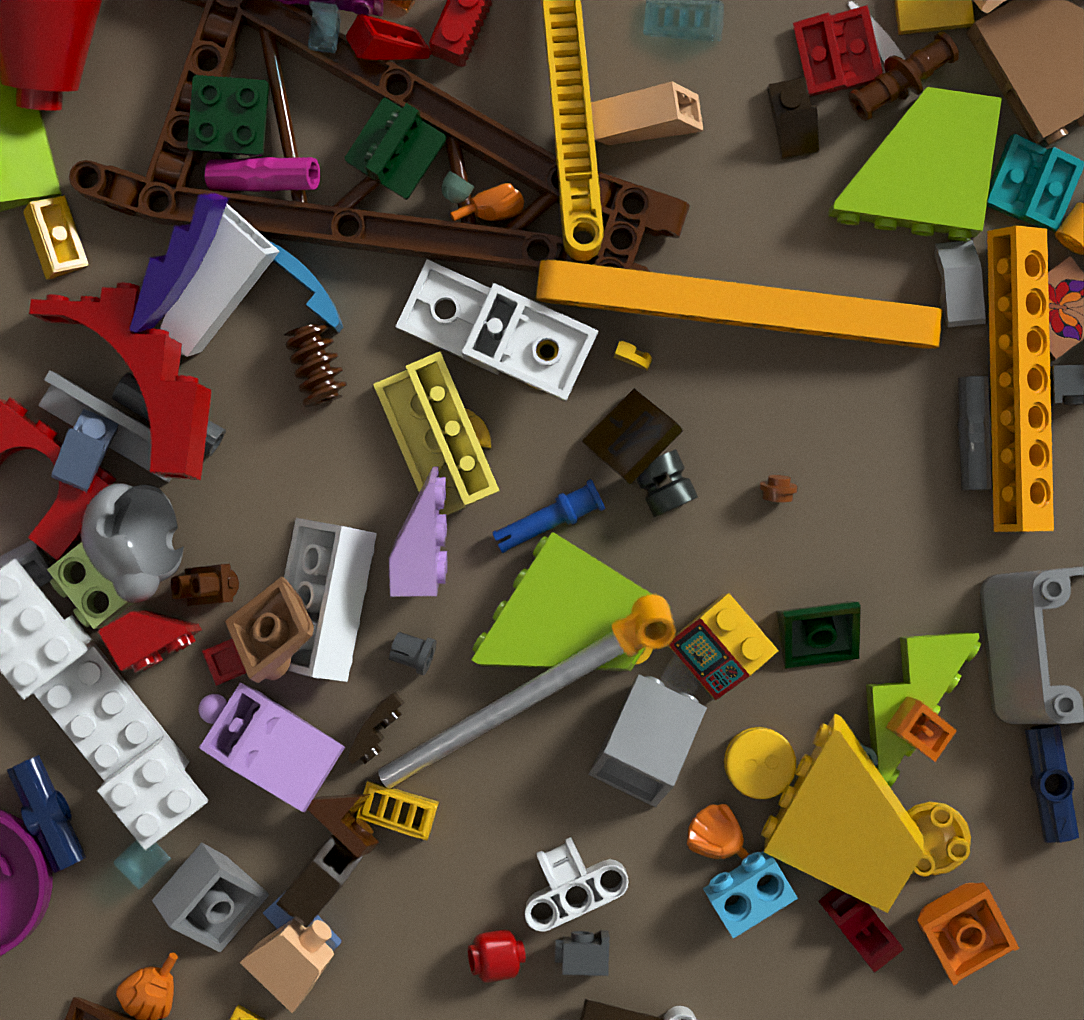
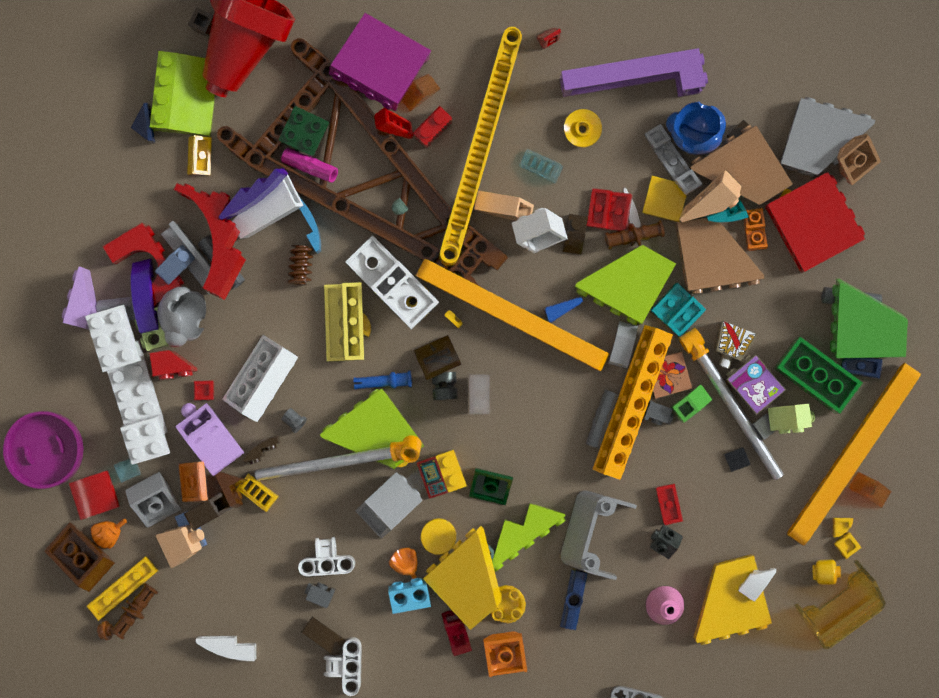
camera: 20 degrees right, 0 degrees up
(46, 813) = (90, 429): dark blue piece -> none
(47, 532) = (142, 296): none -> dark purple slope
(99, 930) = (94, 495): none -> red slope
(206, 585) = (207, 350): reddish brown hips -> none
(270, 630) = (230, 384): medium nougat slope -> none
(271, 837) = (193, 481): none -> orange tile
(324, 27) = (365, 107): clear light blue slope -> none
(395, 147) = (377, 177): dark green bracket -> none
(416, 556) = (313, 375): lavender slope -> none
(493, 204) = (413, 221): orange piece -> none
(496, 956) = (277, 579): red head -> none
(730, 130) = (539, 230): none -> white piece
(737, 472) = (479, 394): none -> clear brick
(778, 488) = (498, 409): dark orange plate -> none
(816, 268) = (556, 311): none -> blue slope
(921, 728) = (519, 549): orange slope -> none

